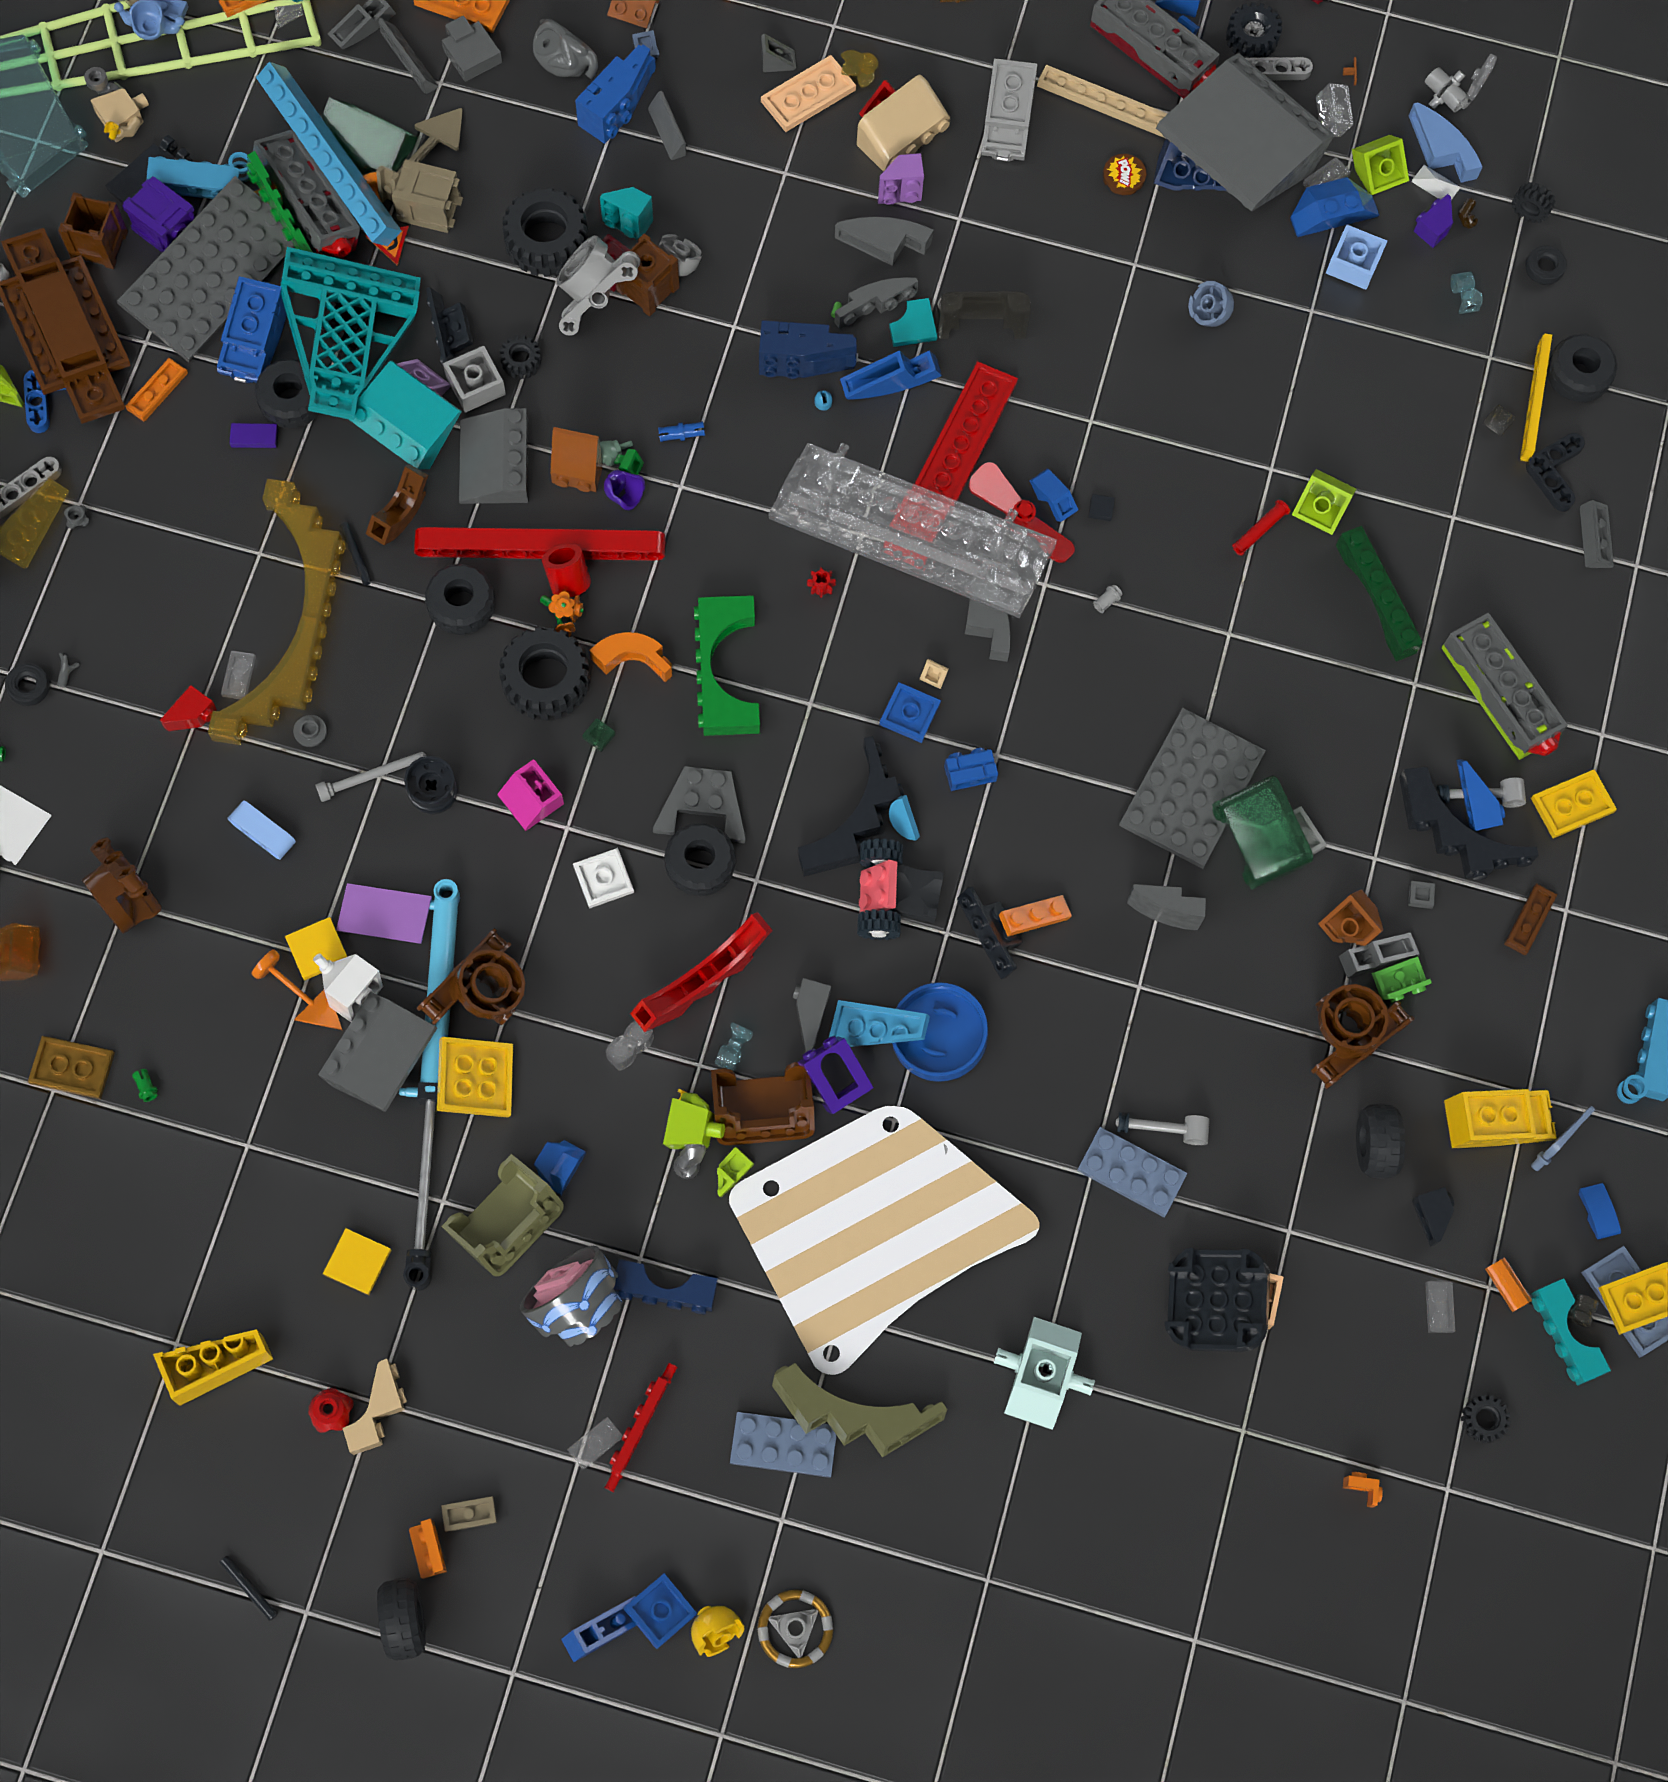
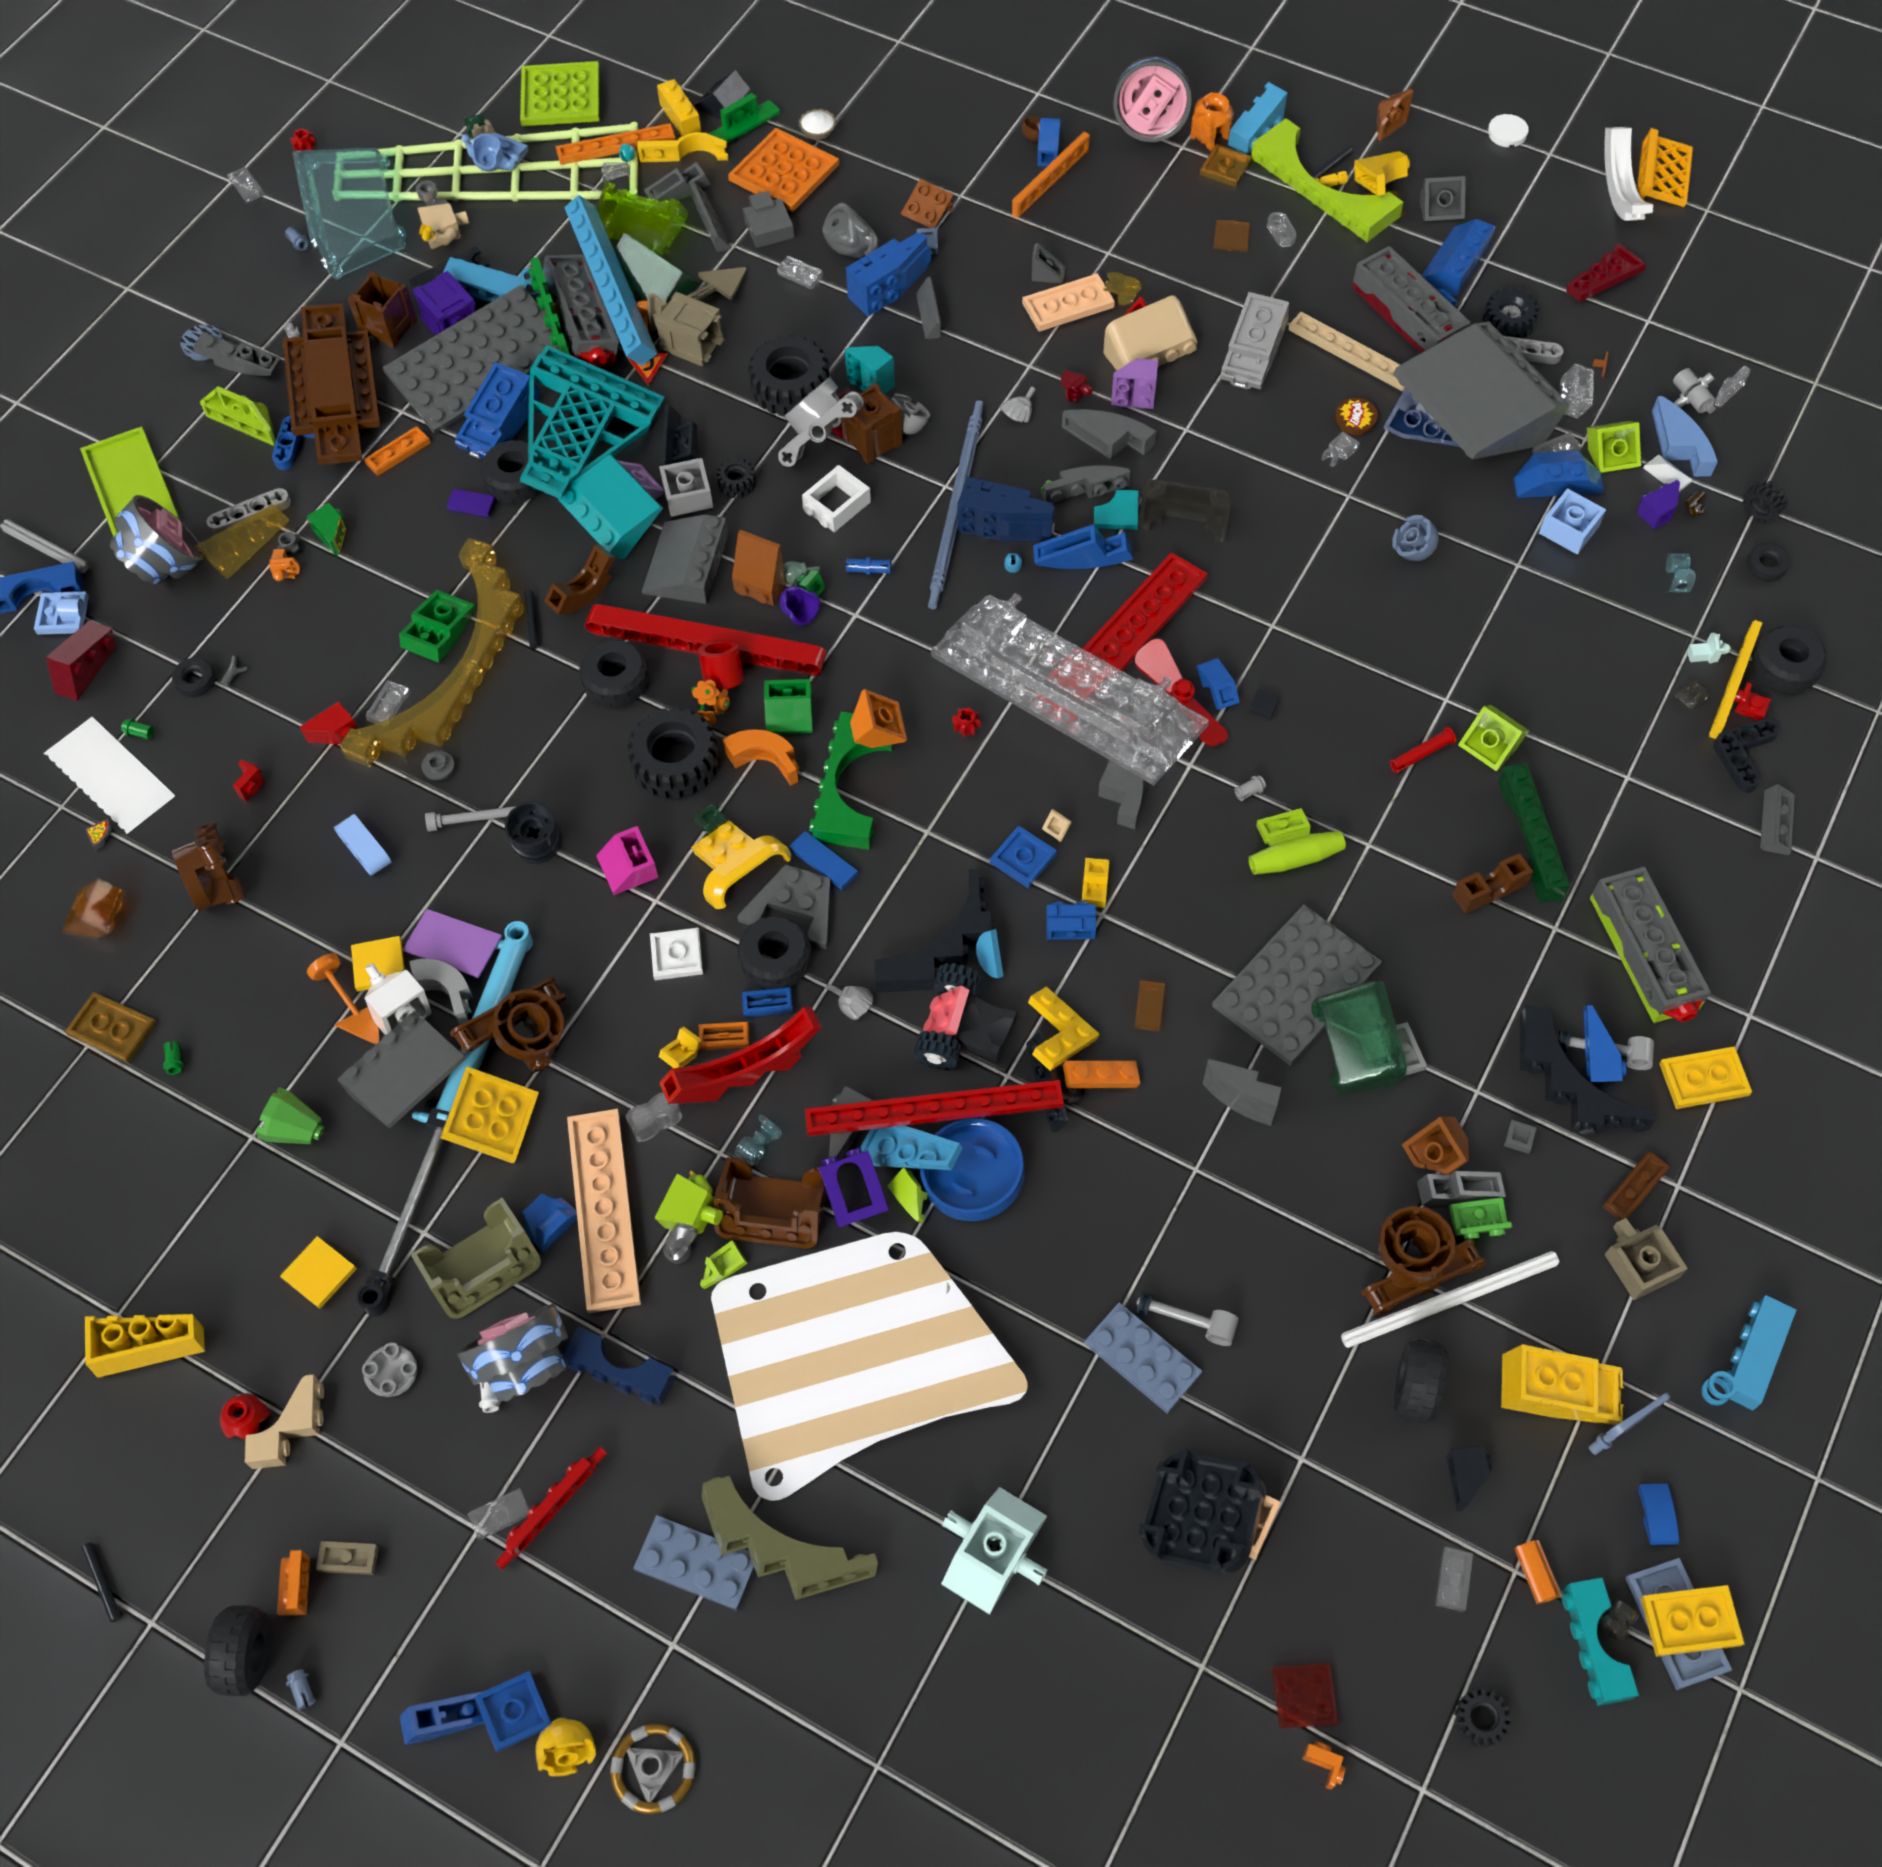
camera: 20 degrees right, 10 degrees down
(80, 546) = (282, 566): none -> orange piece
(114, 491) = (328, 526): none -> green slope
(126, 787) = (249, 782): none -> red bracket
(262, 580) = (436, 625): none -> green slope
(284, 1124) = (289, 1120): none -> bright green cone
(335, 71) = (643, 219): none -> clear neon green windscreen
(392, 951) = (441, 976): none -> light grey arch
(454, 1337) = (390, 1370): none -> light grey dish
(462, 1635) = (299, 1686): none -> sand blue pin
(521, 105) = (799, 272): none -> clear plate
(555, 1344) = (488, 1400): none -> white pin
(607, 1144) = (603, 1211): none -> light nougat plate
(633, 771) = (732, 857): none -> yellow piece
(636, 973) = (682, 1049): none -> yellow bracket
(638, 344) = (849, 484): none -> white window
(644, 601) = (788, 706): none -> green slope
(673, 959) = (728, 1039): none -> orange tile
(705, 917) = (767, 1006): none -> blue tile
(719, 754) = (823, 860): none -> blue tile
(739, 603) = (877, 721): none -> orange slope
(751, 345) = (951, 522): none -> sand blue axle
(785, 890) = (853, 1000): none -> light grey piece
(787, 224) = (1019, 407): none -> light grey piece
(840, 190) = (1075, 386): none -> dark red piece
(886, 1067) = (908, 1193): none -> lime slope
(891, 983) = (934, 1108): none -> red plate
(983, 724) = (1095, 881): none -> yellow slope
(1001, 879) = (1074, 1031): none -> yellow plate
(1062, 837) = (1149, 1005): none -> clear orange tile
(1116, 212) = (1340, 447): none -> clear plate
(1159, 648) = (1292, 843): none -> lime plate
(1334, 1435) = (1304, 1696): none -> clear red tile
(1356, 651) = (1506, 878): none -> reddish brown arch
(1388, 1059) = (1449, 1299): none -> white axle
(1507, 371) = (1708, 651): none -> light aqua piece
(1543, 976) = (1644, 1259): none -> dark tan hinge
(1554, 419) = (1751, 704): none -> red bracket

